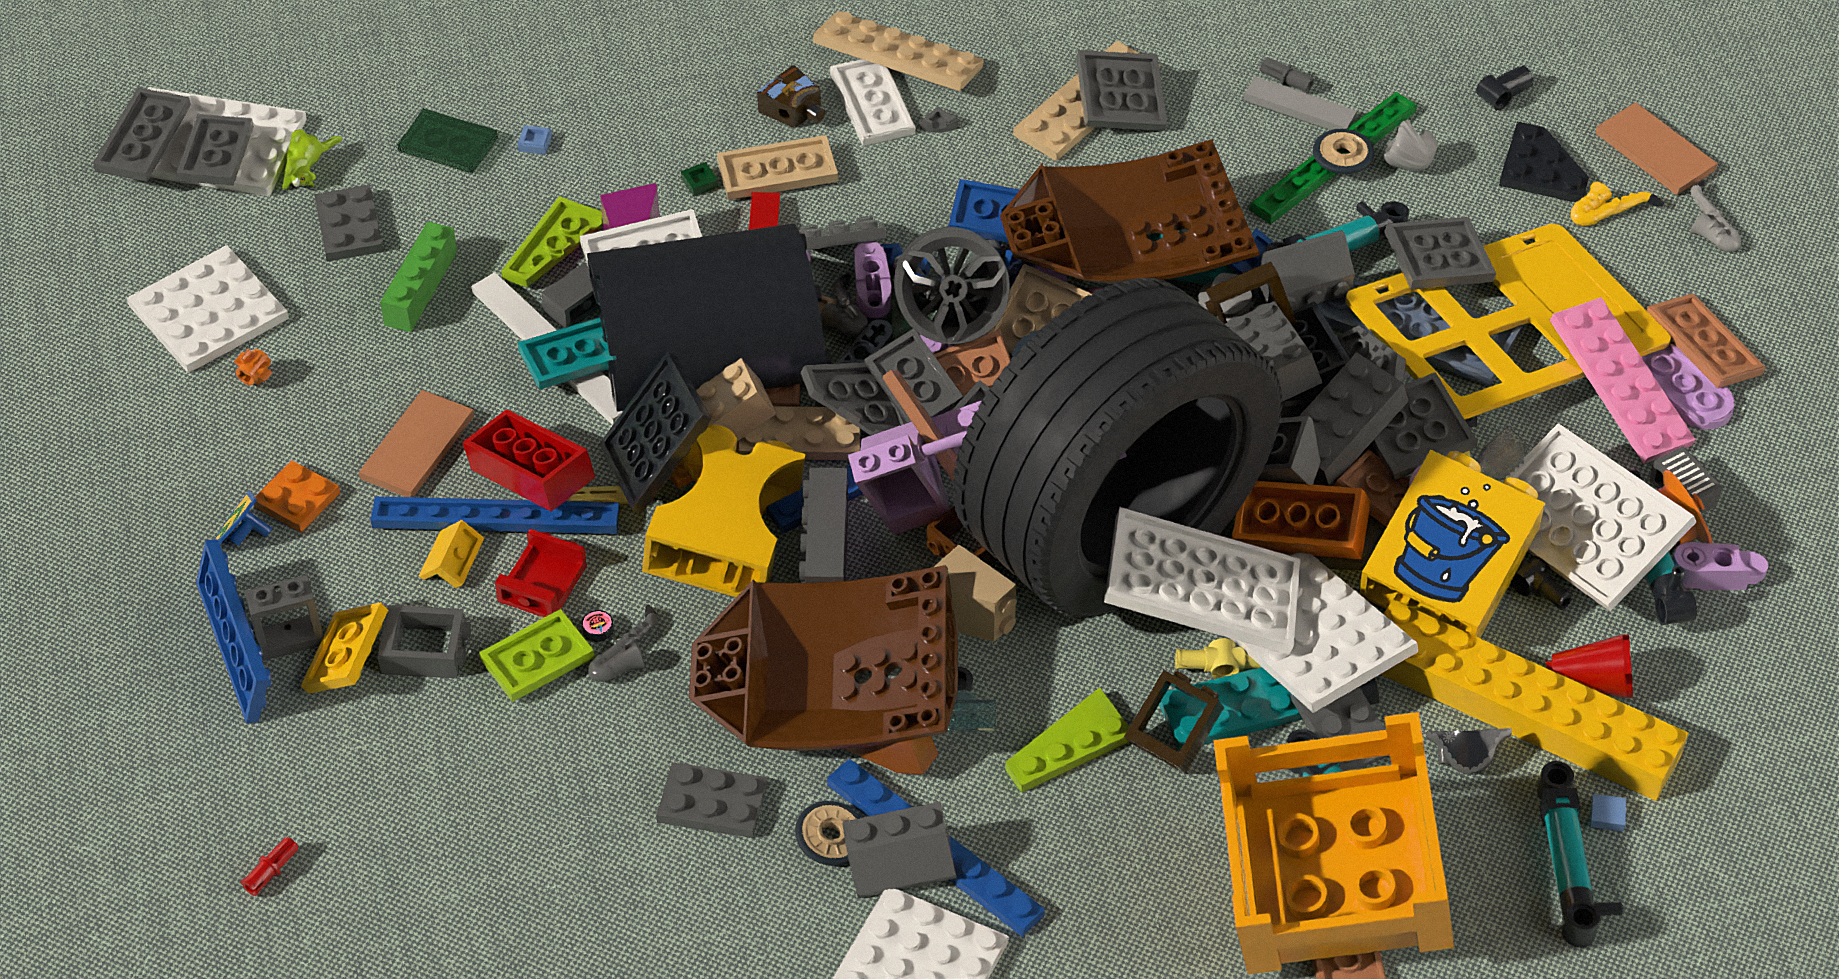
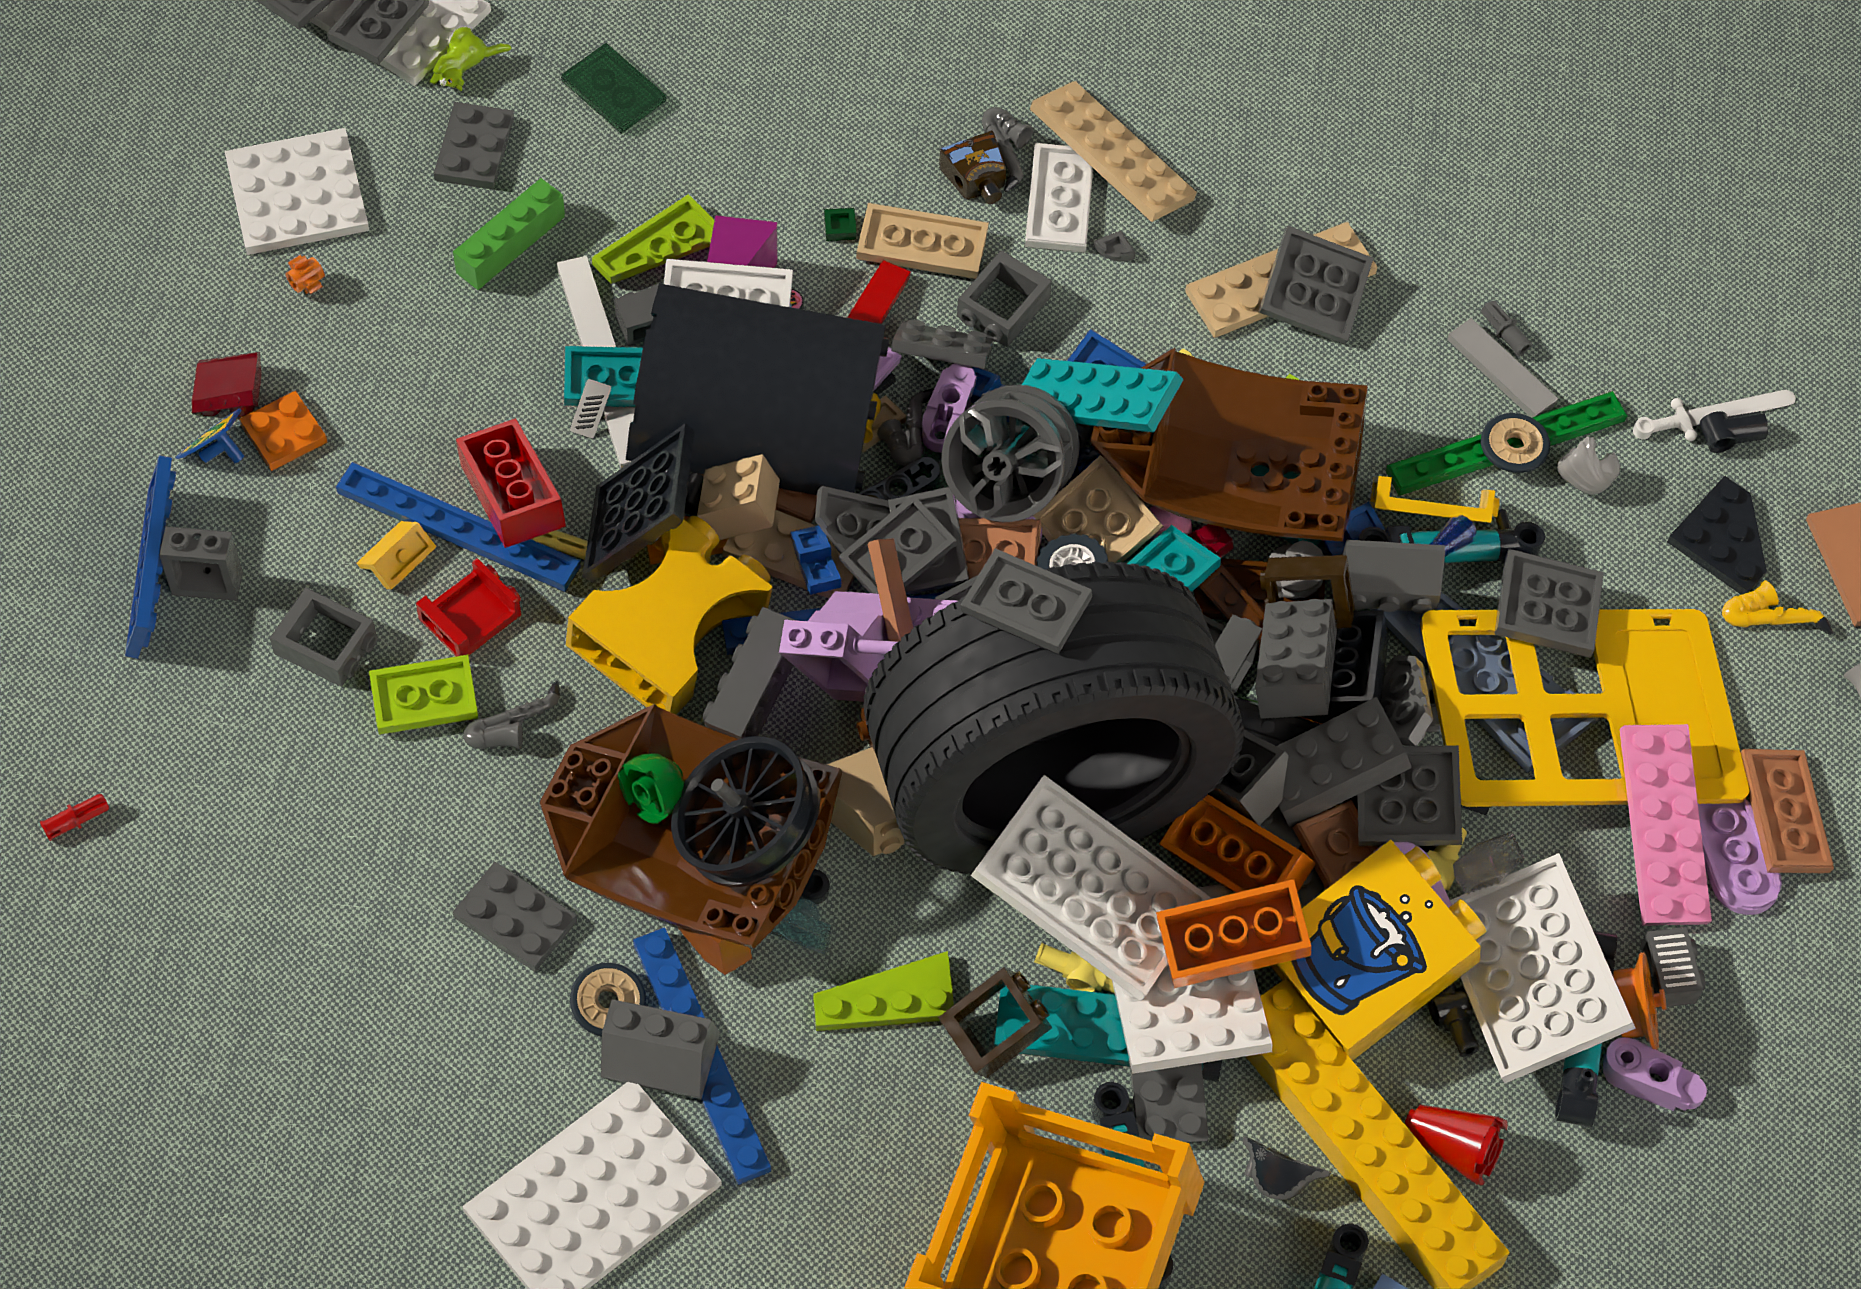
camera: 20 degrees right, 10 degrees up
(226, 476) = (227, 384): none -> dark red slope
(344, 648) = (245, 616): yellow plate -> none
(416, 444) = (422, 418): nougat tile -> none
(534, 139) = (699, 118): medium blue tile -> none
(564, 383) = (590, 408): none -> white sticker
(597, 625) = (497, 685): tile -> none
(785, 645) = (652, 784): none -> green cylinder
(810, 65) = (1006, 129): none -> dark grey piece
(821, 427) = (815, 559): none -> blue slope
(871, 167) = (1017, 276): none -> dark grey window
(876, 405) = (917, 538): none -> dark grey plate
(882, 627) = (745, 811): none -> black wheel
(1009, 211) = (1107, 393): none -> teal plate
(1082, 324) = (1026, 601): none -> dark grey plate
(1343, 219) = (1455, 534): none -> clear blue cone
(1343, 567) = (1234, 933): none -> orange brick
(1349, 203) = (1380, 500): none -> yellow panel
(1464, 93) = (1686, 419): none -> white sword

